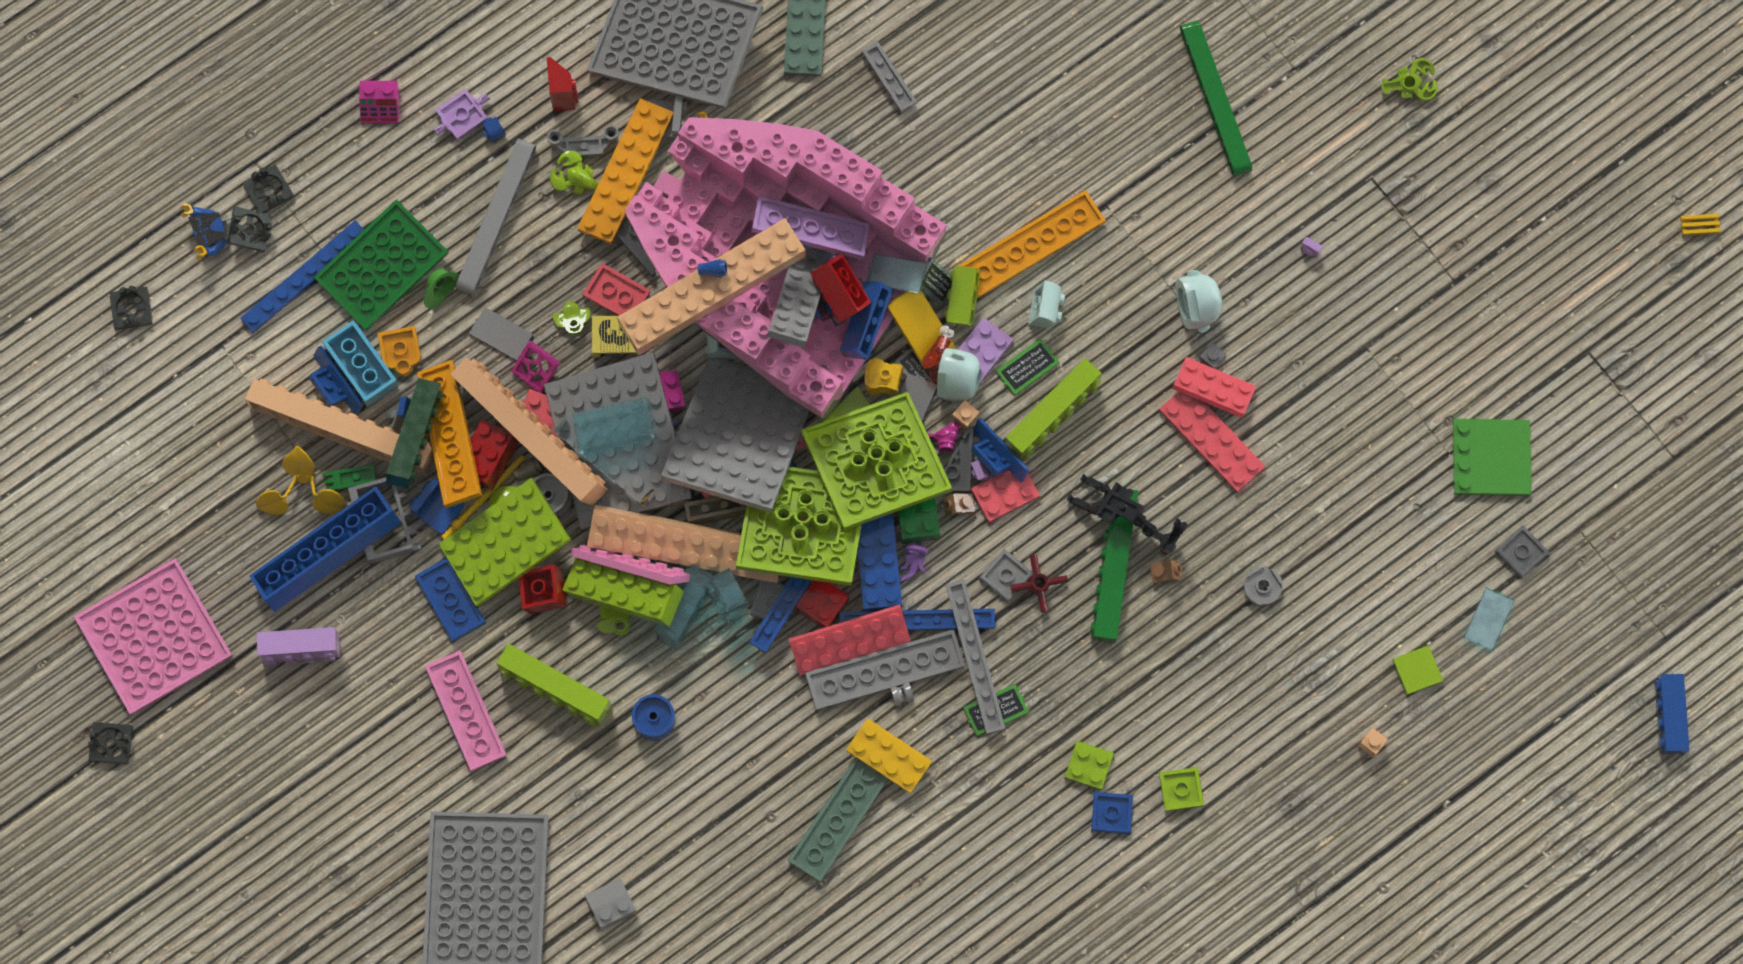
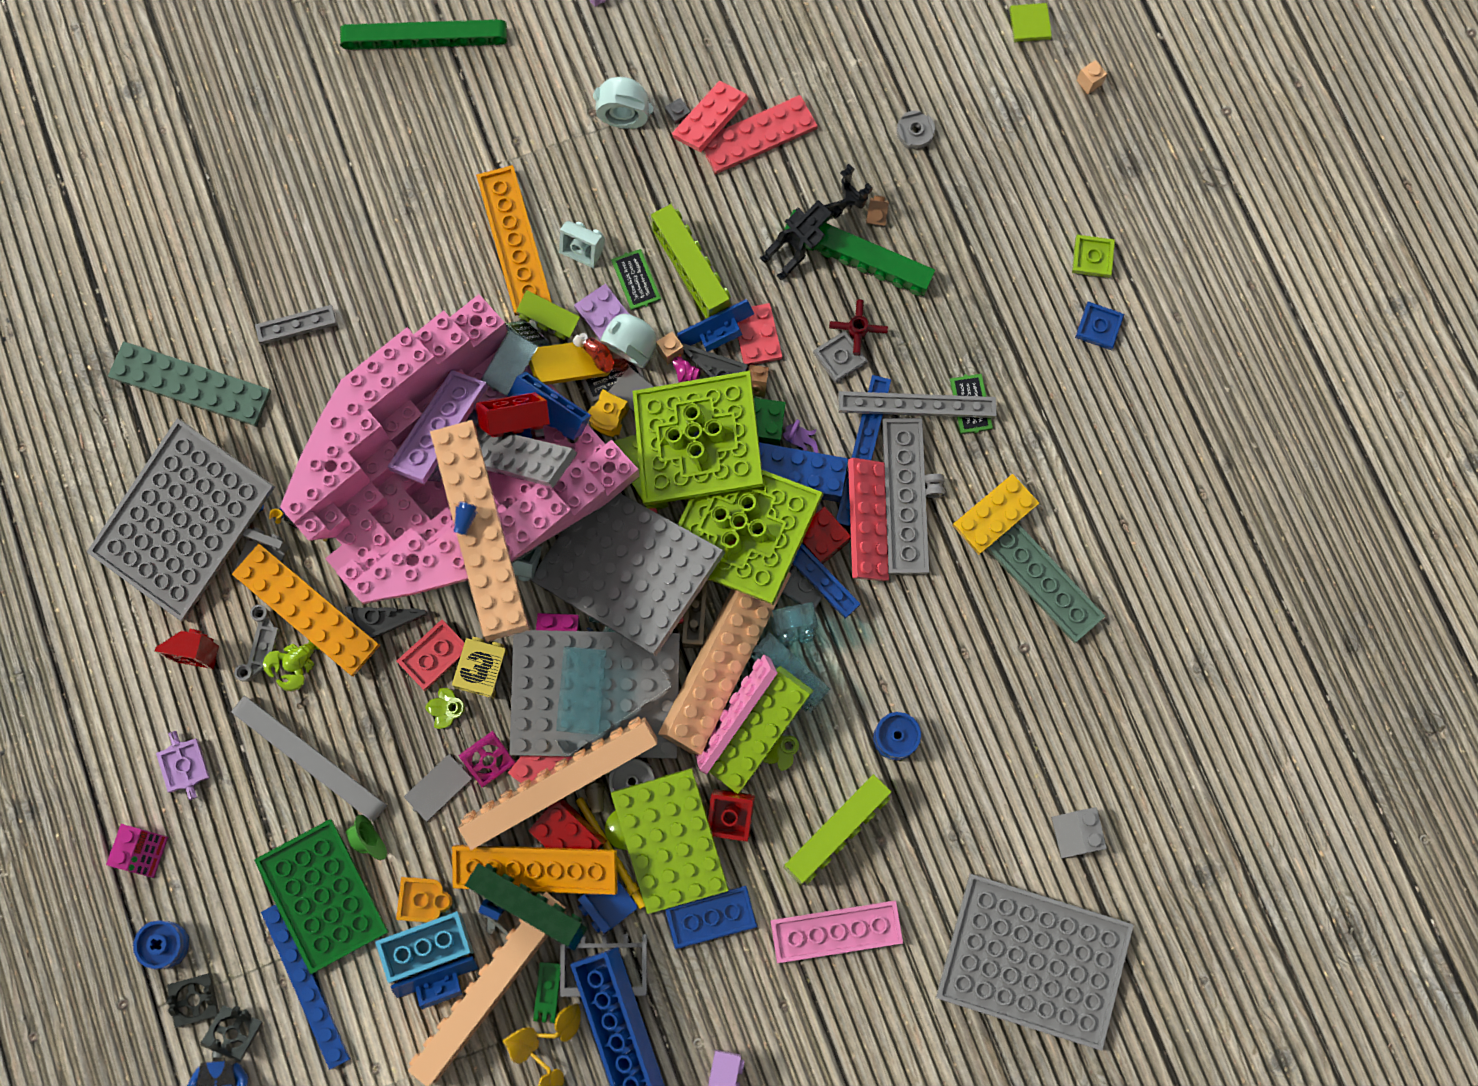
camera: 75 degrees left, 0 degrees up
(306, 148) = (148, 941): none -> blue wheel
(493, 129) = (211, 736): blue plate -> none
(980, 471) = (729, 350): lavender plate -> none
(1089, 765) = (1048, 333): lime plate -> none

